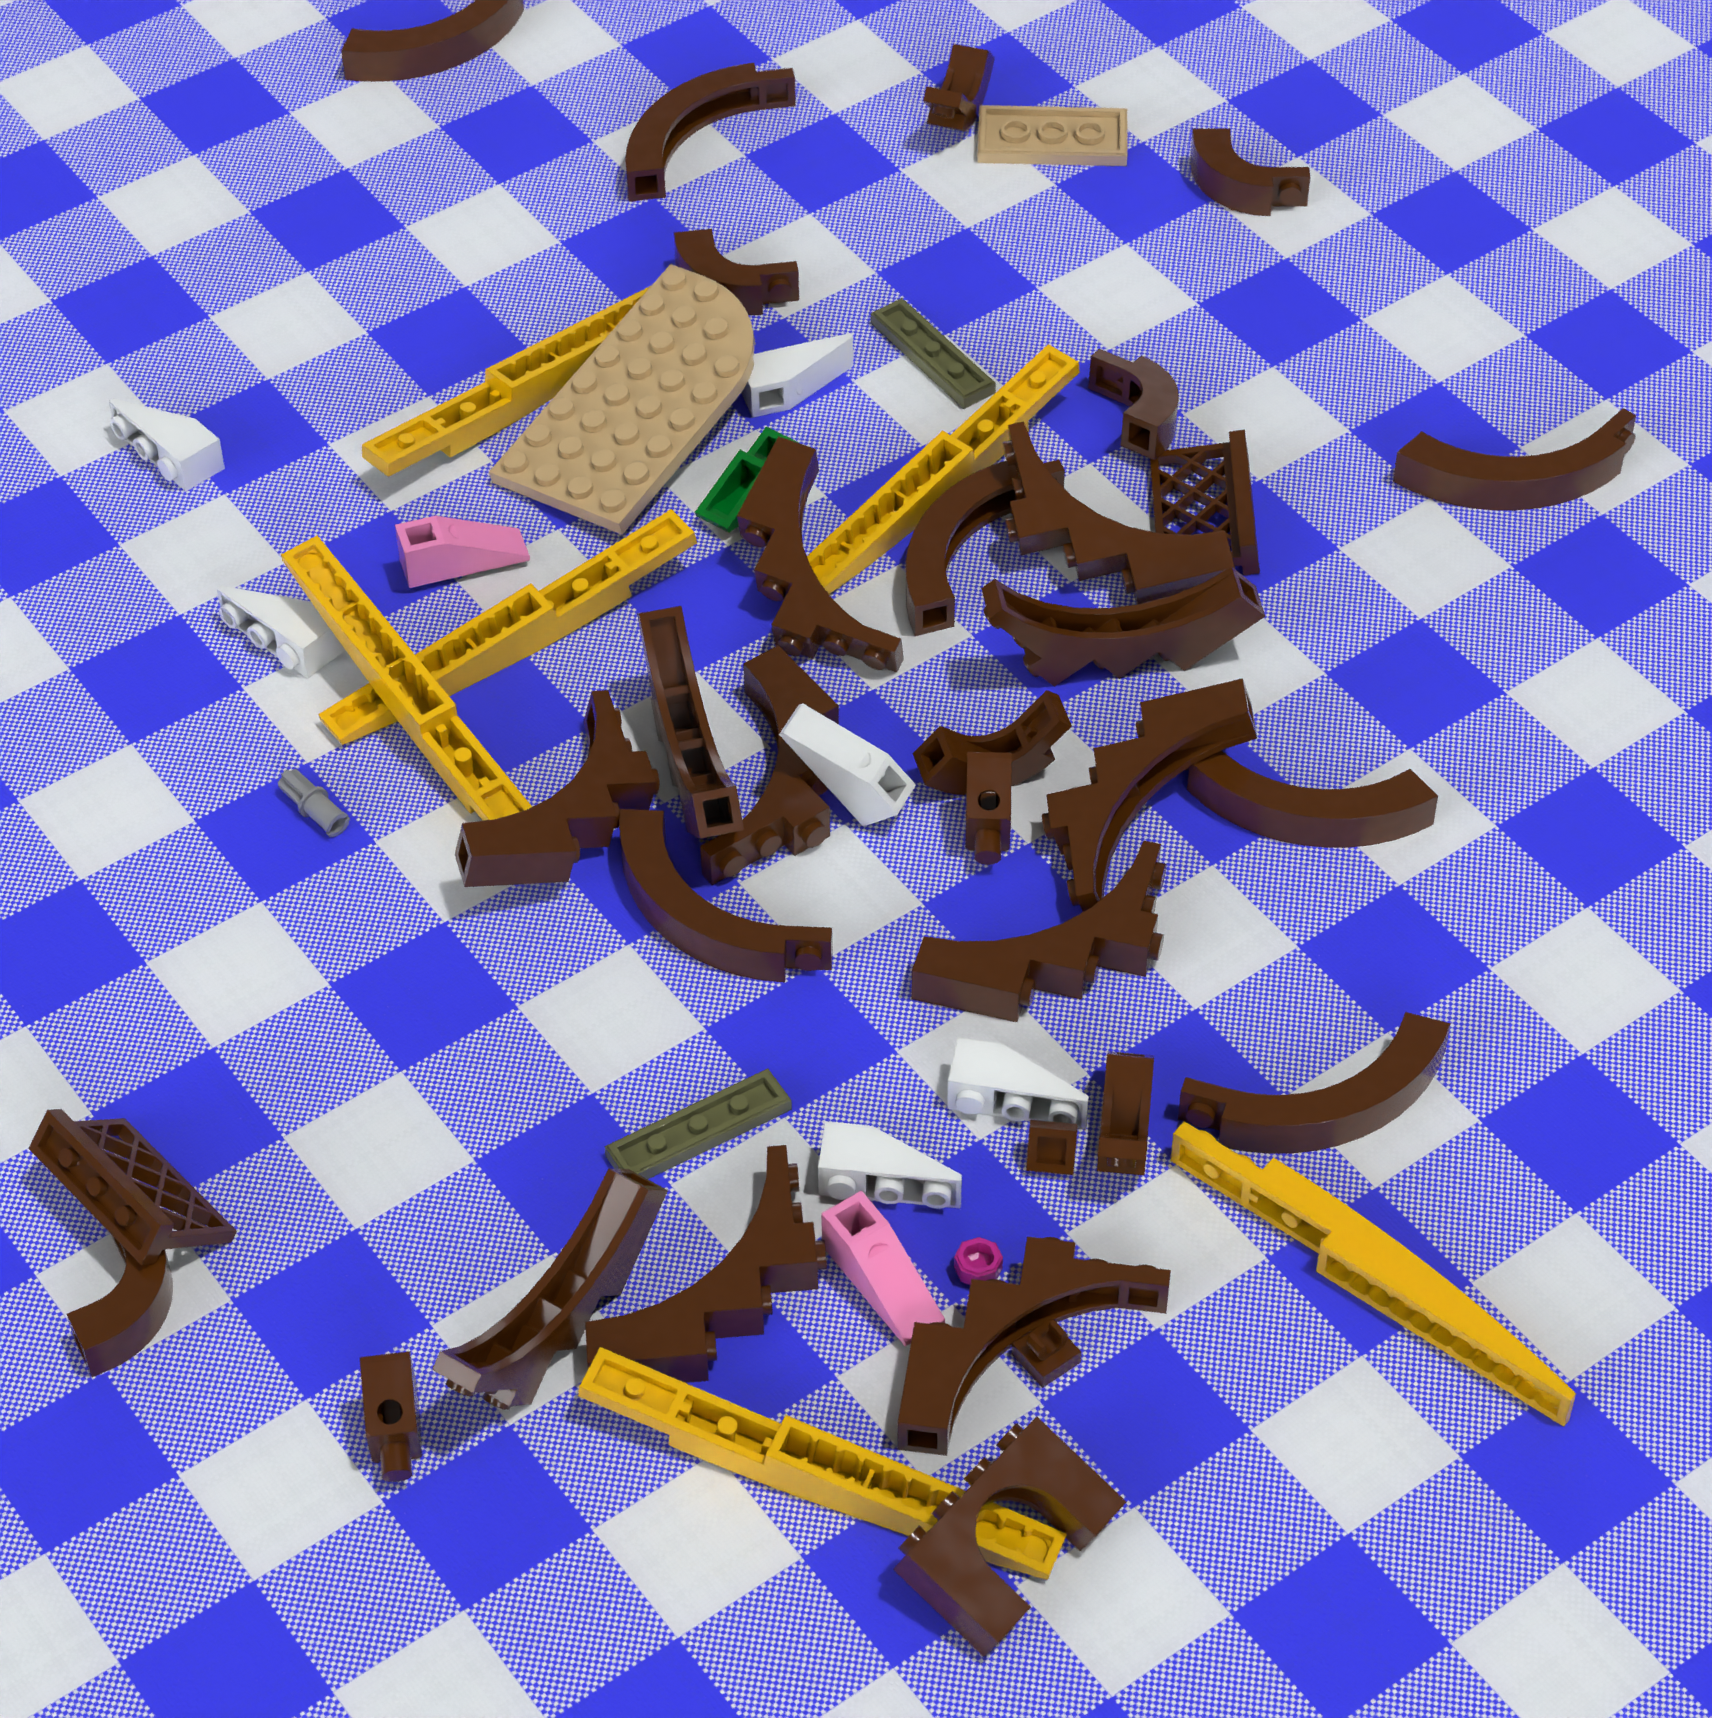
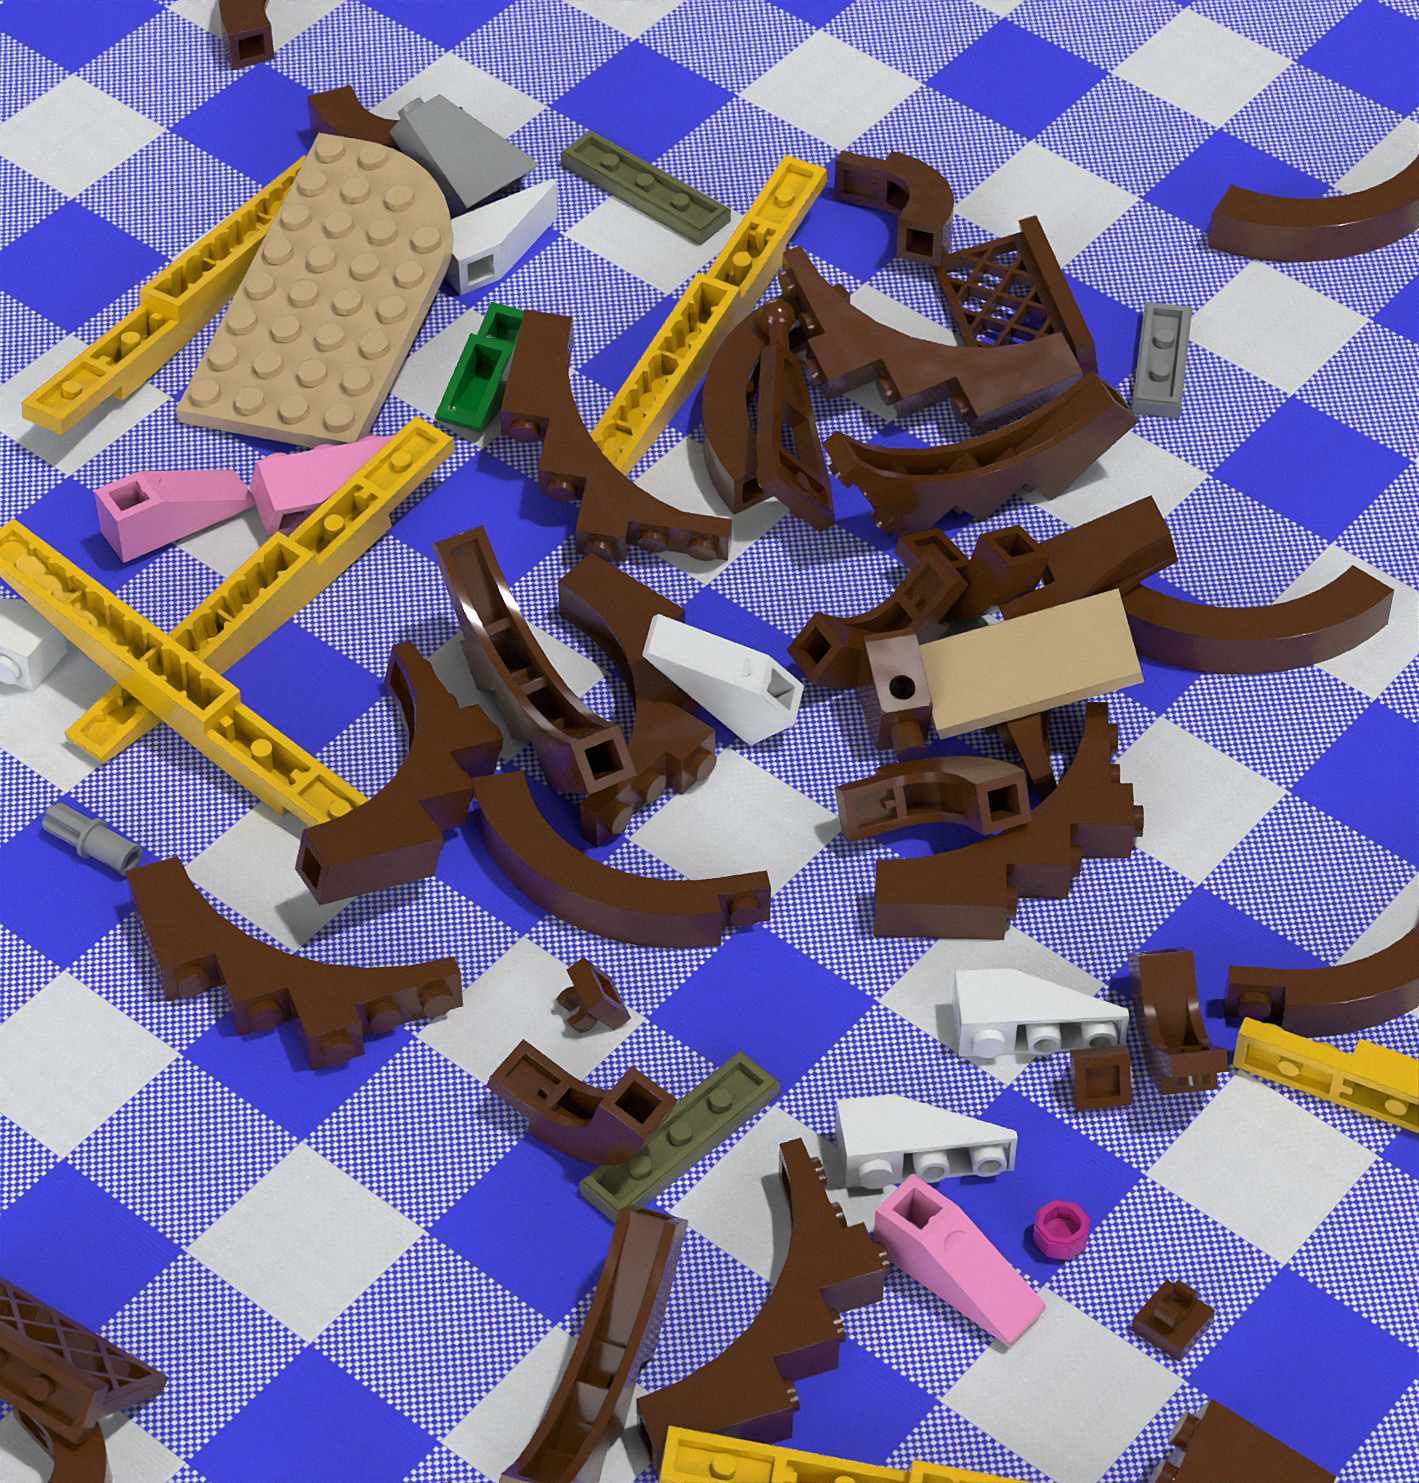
camera: 15 degrees left, 0 degrees up
(408, 944) = (265, 987): none -> reddish brown arch
(561, 547) = (298, 483): none -> bright pink slope
(613, 1091) = (577, 1117): none -> reddish brown arch
(665, 1003) = (597, 998): none -> reddish brown tile
(780, 301) = (459, 153): none -> light grey slope
(950, 604) = (784, 396): none -> reddish brown plate
(995, 889) = (950, 789): none -> reddish brown arch
(1053, 1286) = (1105, 1288): reddish brown arch -> none
(1097, 715) = (1000, 570): none -> reddish brown arch
(1101, 800) = (1030, 664): none -> tan tile
(1317, 570) = (1162, 360): none -> light grey tile

